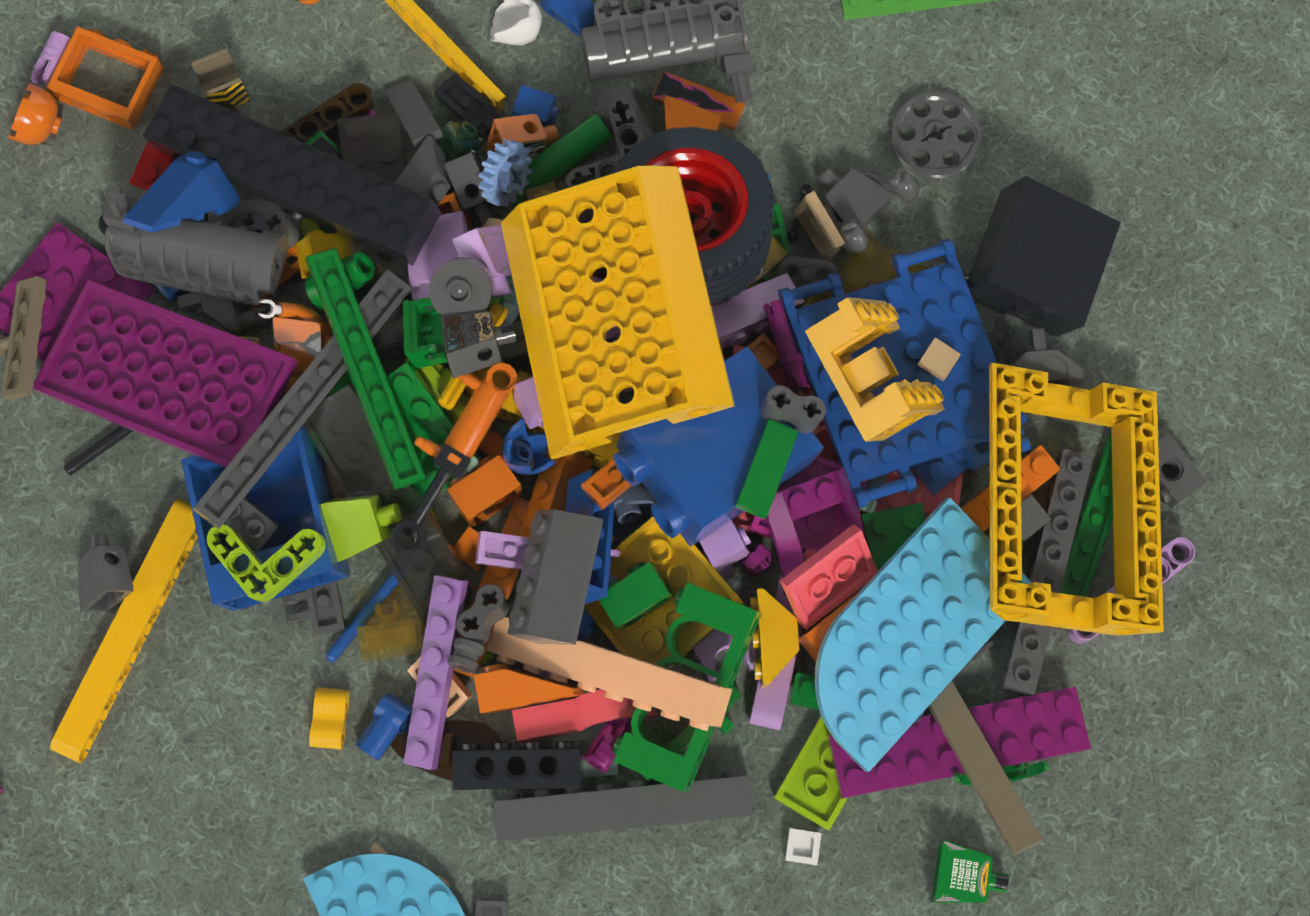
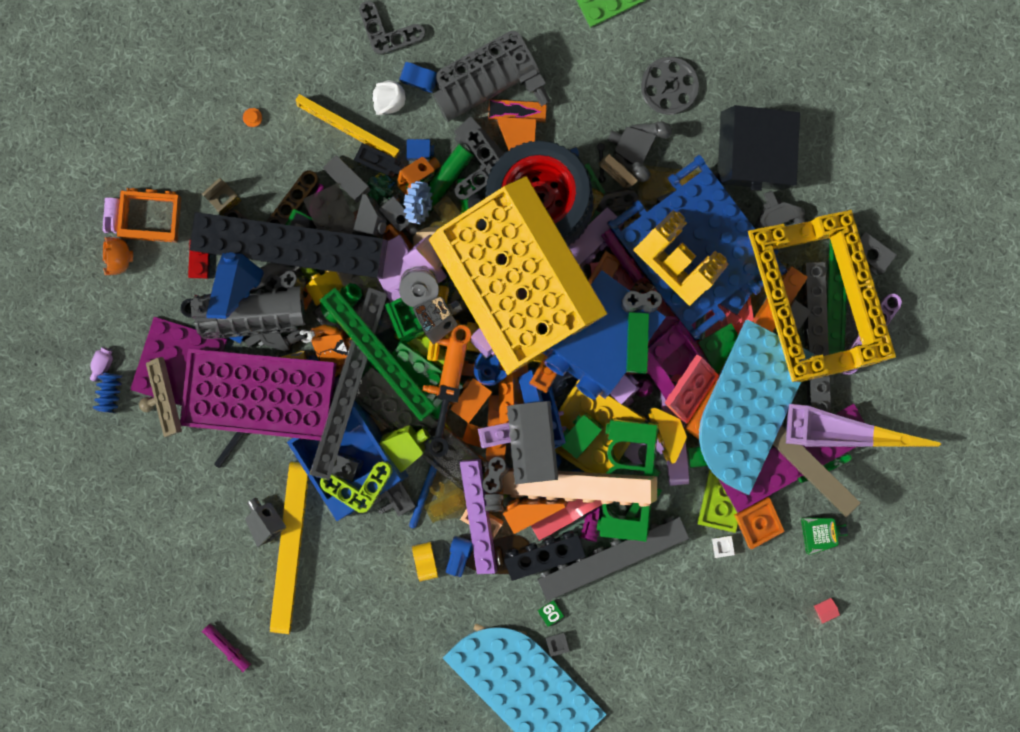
camera: 10 degrees left, 10 degrees up
(497, 864) = (550, 613): none -> green tile
(871, 826) = (759, 523): none -> orange plate
(939, 359) = (716, 235): tan tile -> none
(1016, 706) = (823, 429): none -> lavender plate

